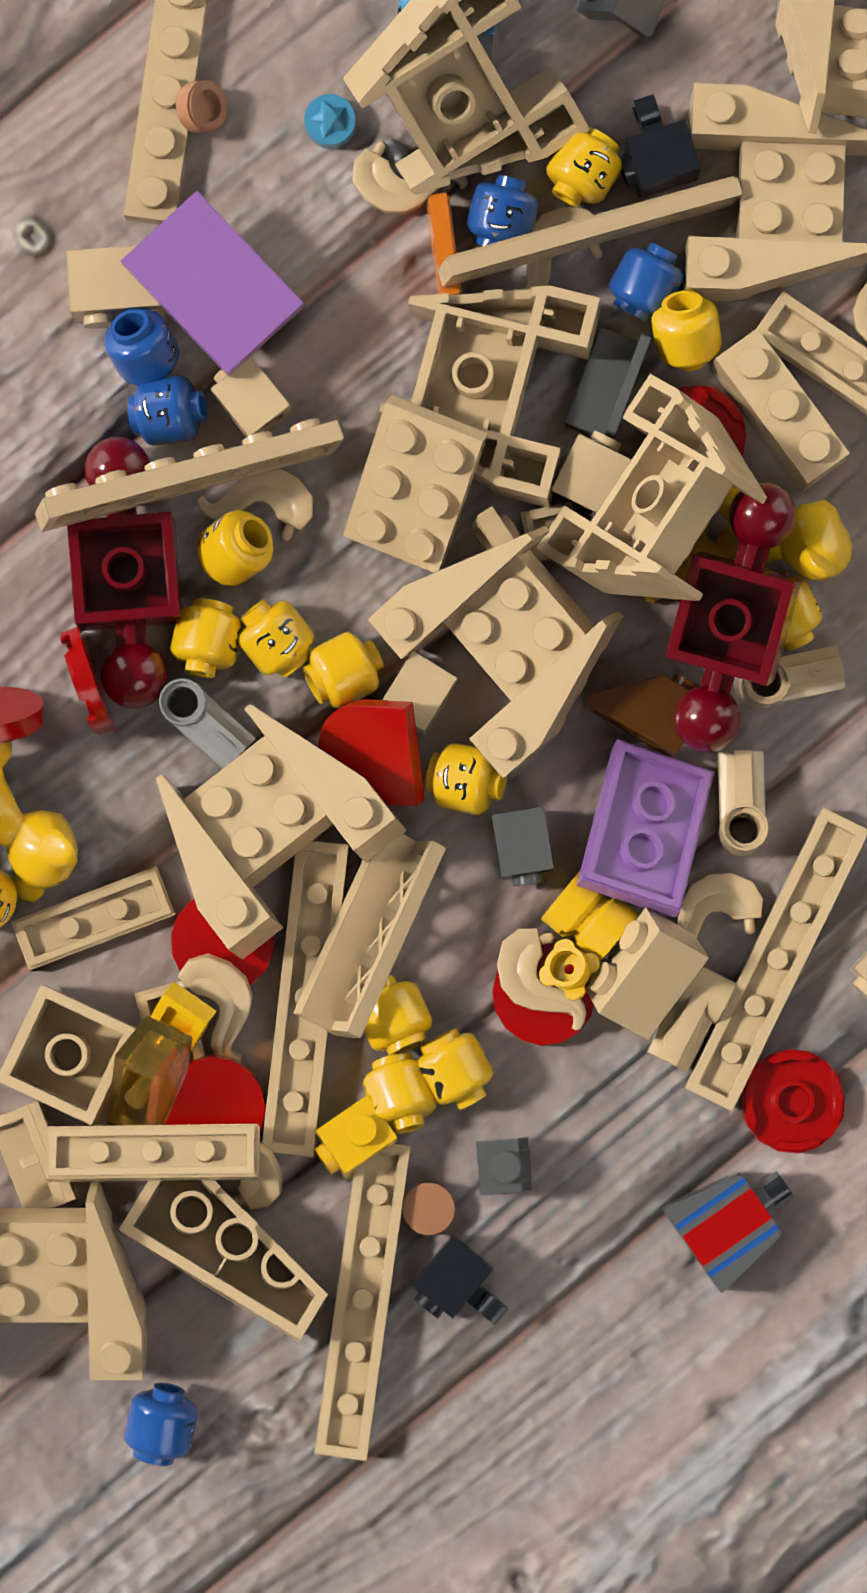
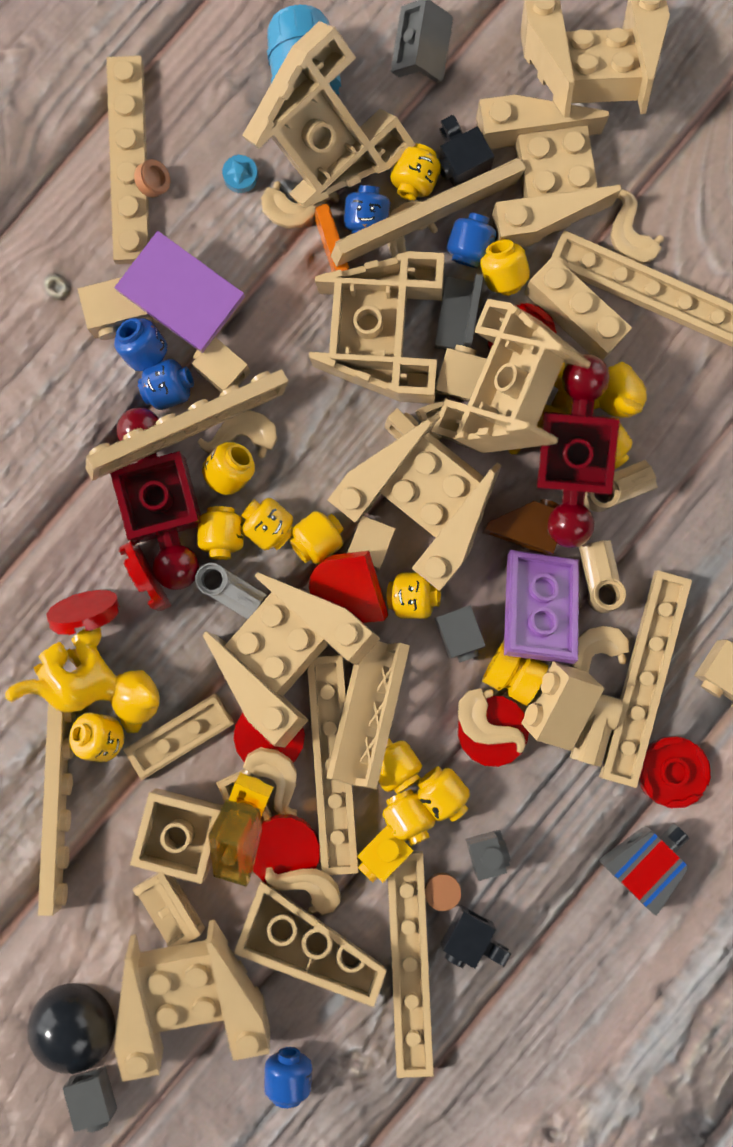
camera: 15 degrees left, 0 degrees up
(152, 1152) = (247, 895): tan tile -> none
(414, 484) = (342, 401): tan plate -> none
(556, 962) = (503, 704): yellow plate -> none

